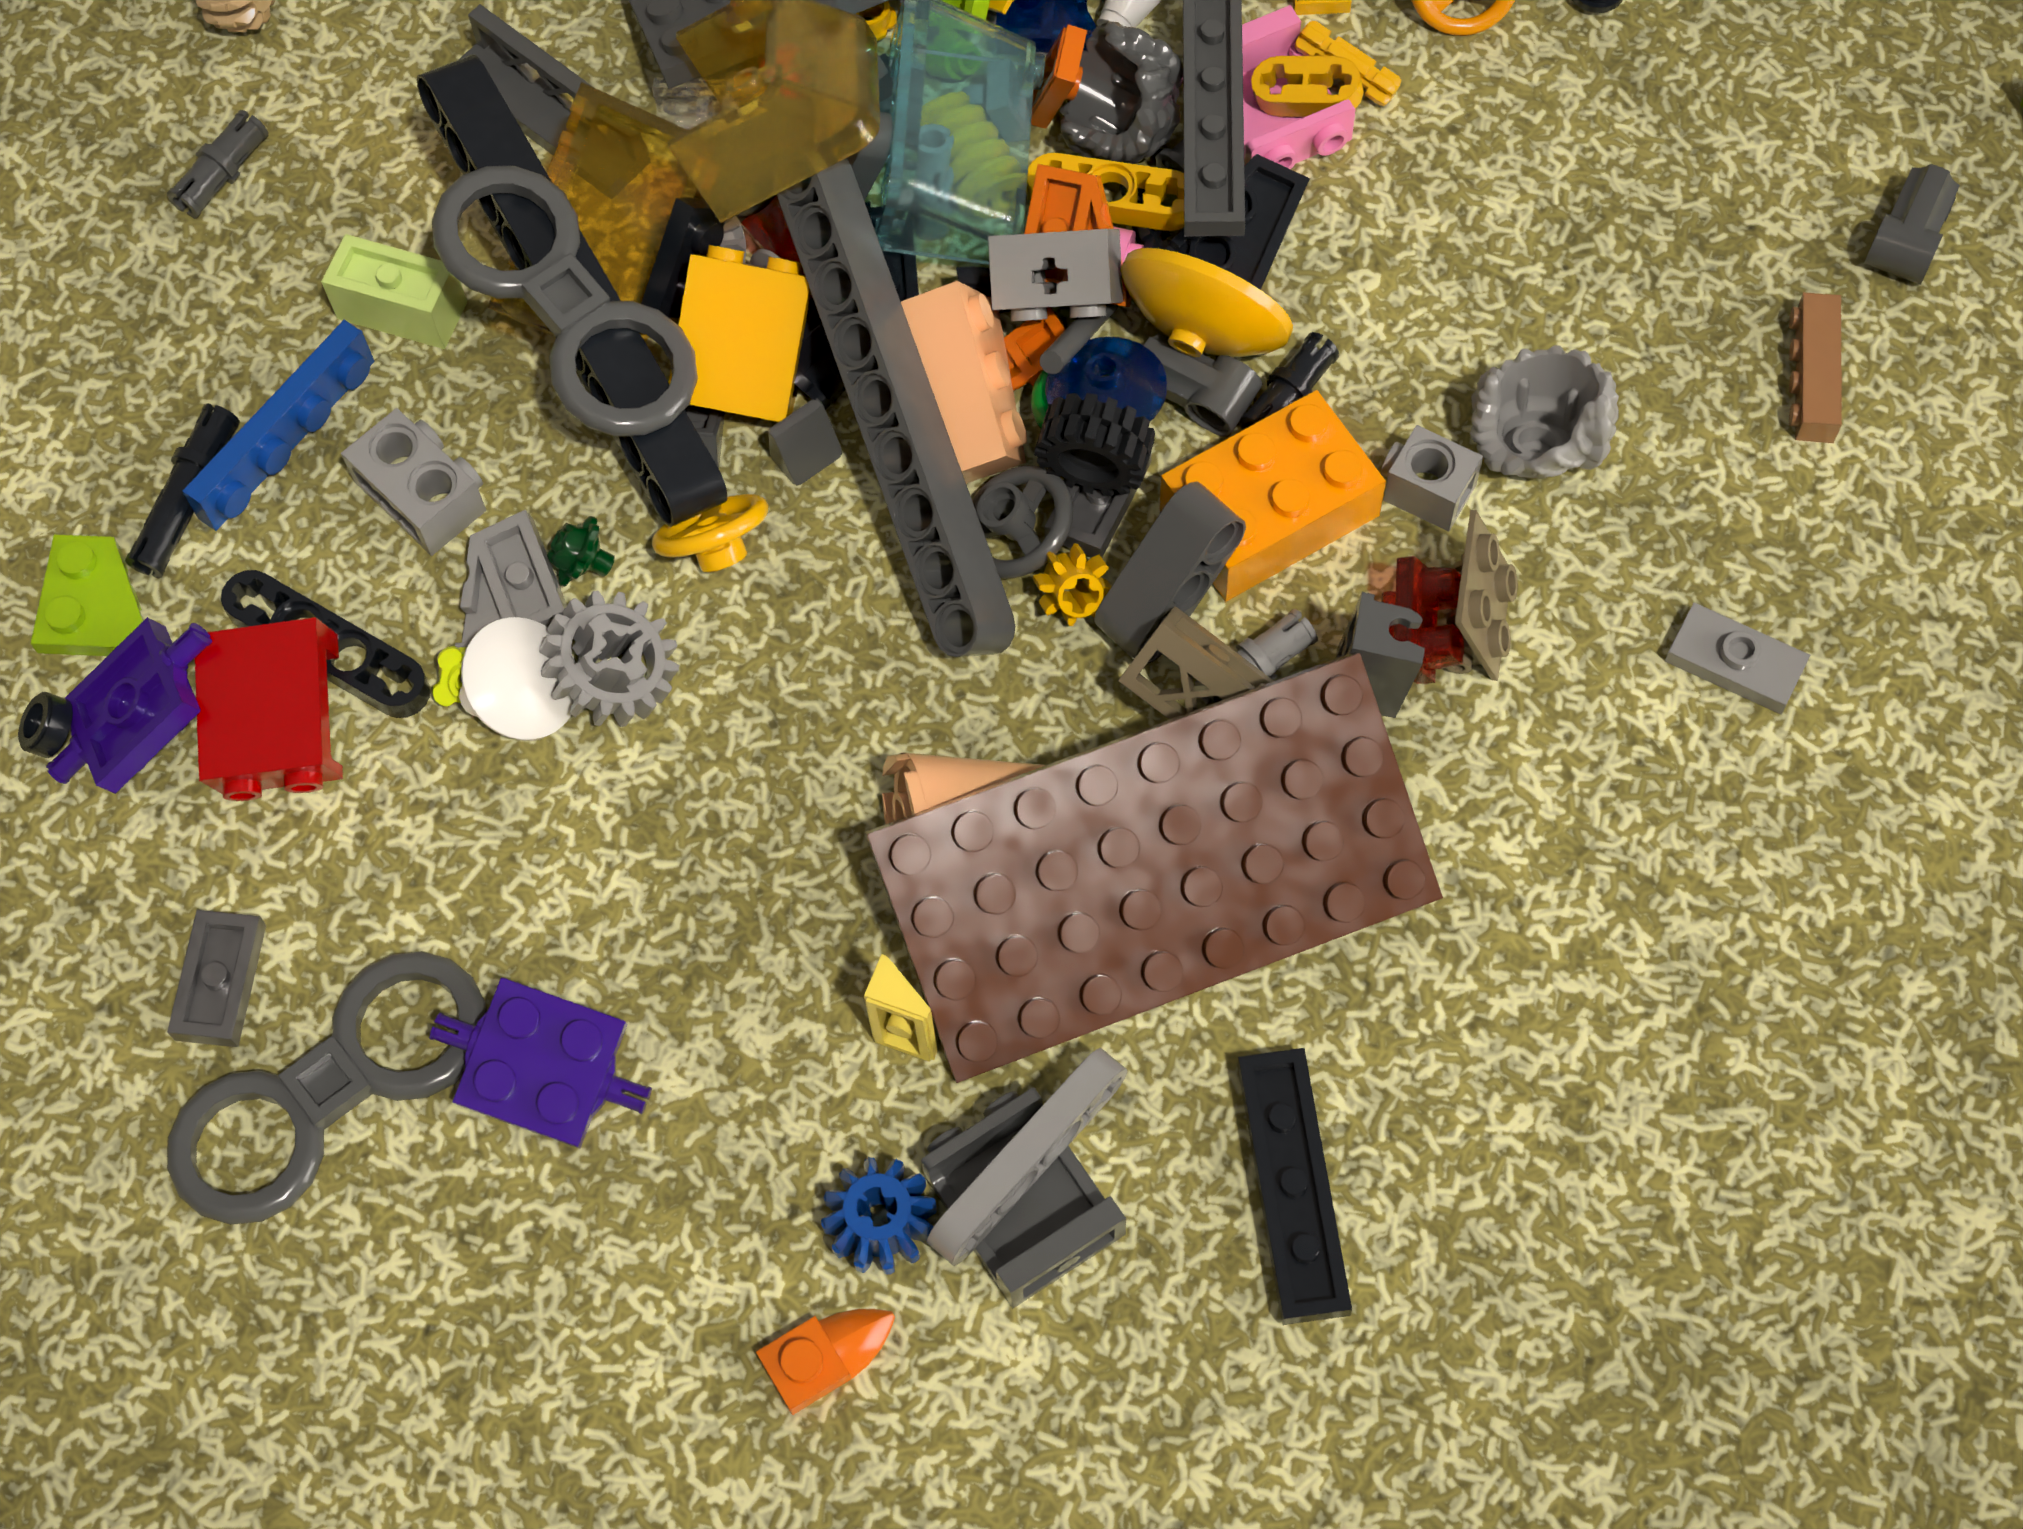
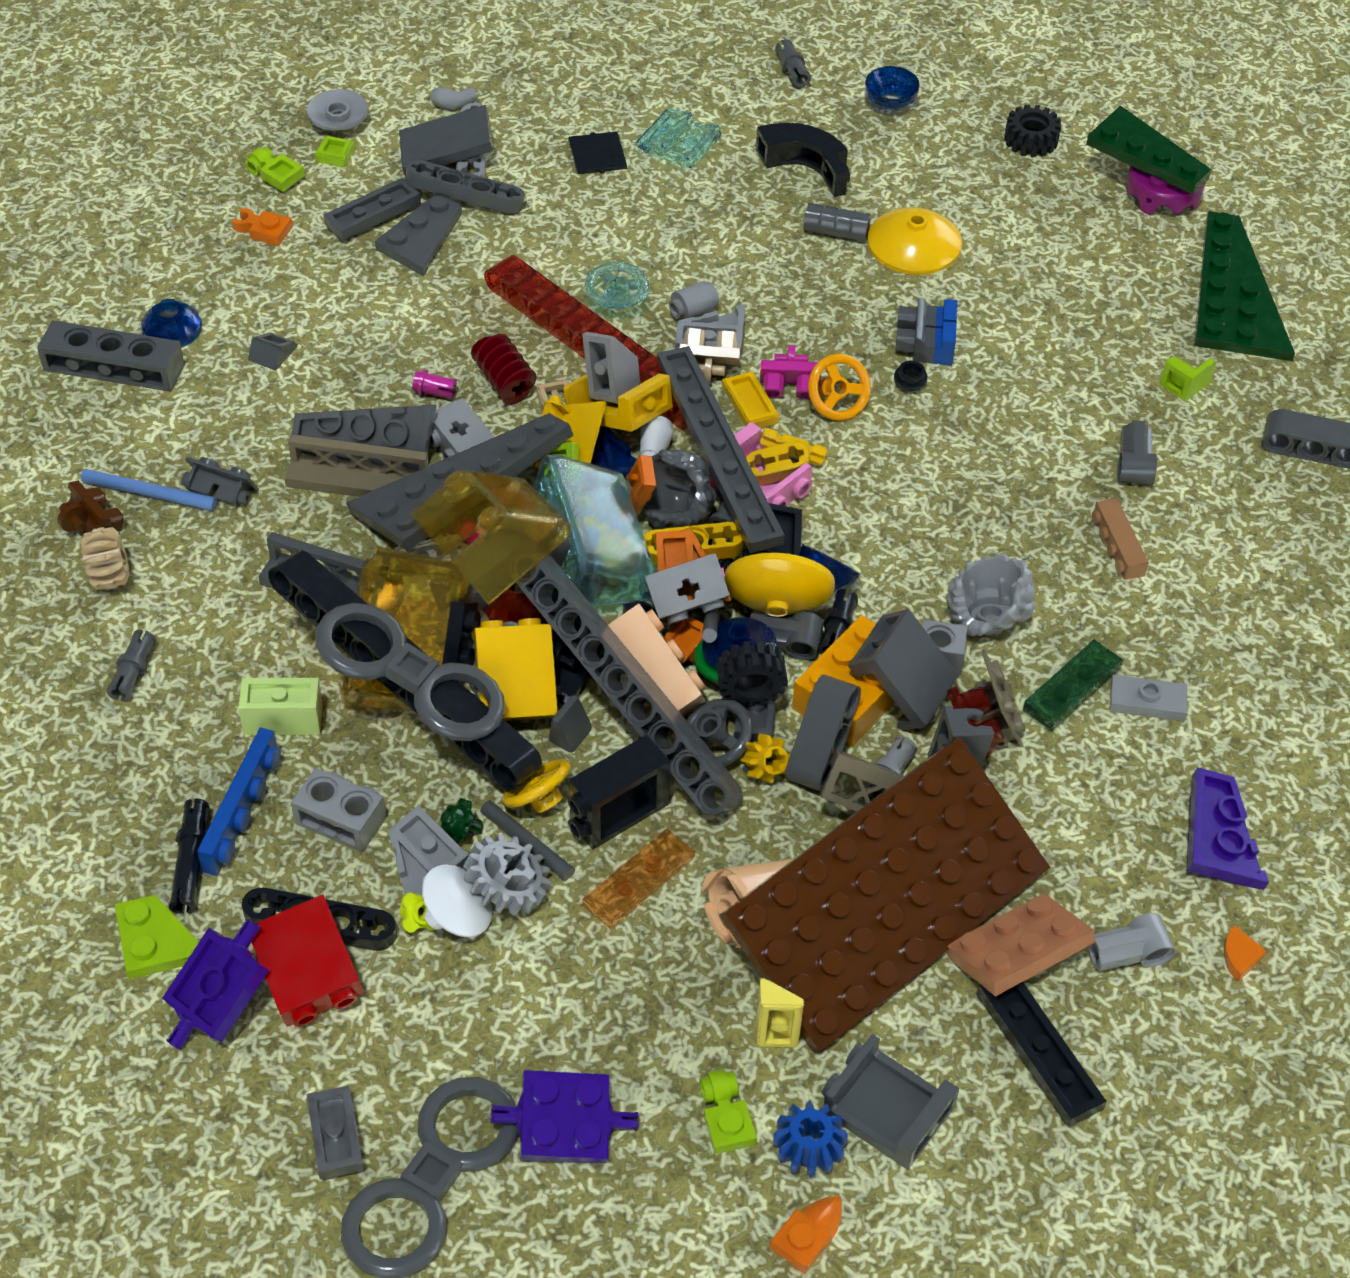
camera: 25 degrees left, 15 degrees down
(45, 724) = (157, 1016): black tile -> none
(670, 609) = (513, 828): none -> dark grey bar
(778, 1149) = (726, 1122): none -> lime plate
(808, 720) = (638, 878): none -> clear orange tile
(817, 578) = (618, 792): none -> black window
(1026, 1156) = (885, 1075): light grey beam -> none
(1307, 290) = (843, 574): none -> clear blue piece
(1334, 1012) = (1020, 944): none -> nougat plate
(1346, 502) = (907, 667): none -> dark grey panel
(1532, 1067) = (1141, 941): none -> light grey piece
(1620, 601) = (1072, 685): none -> clear green plate
(1687, 1135) = (1241, 953): none -> orange tile
(1745, 924) = (1219, 834): none -> dark purple wing

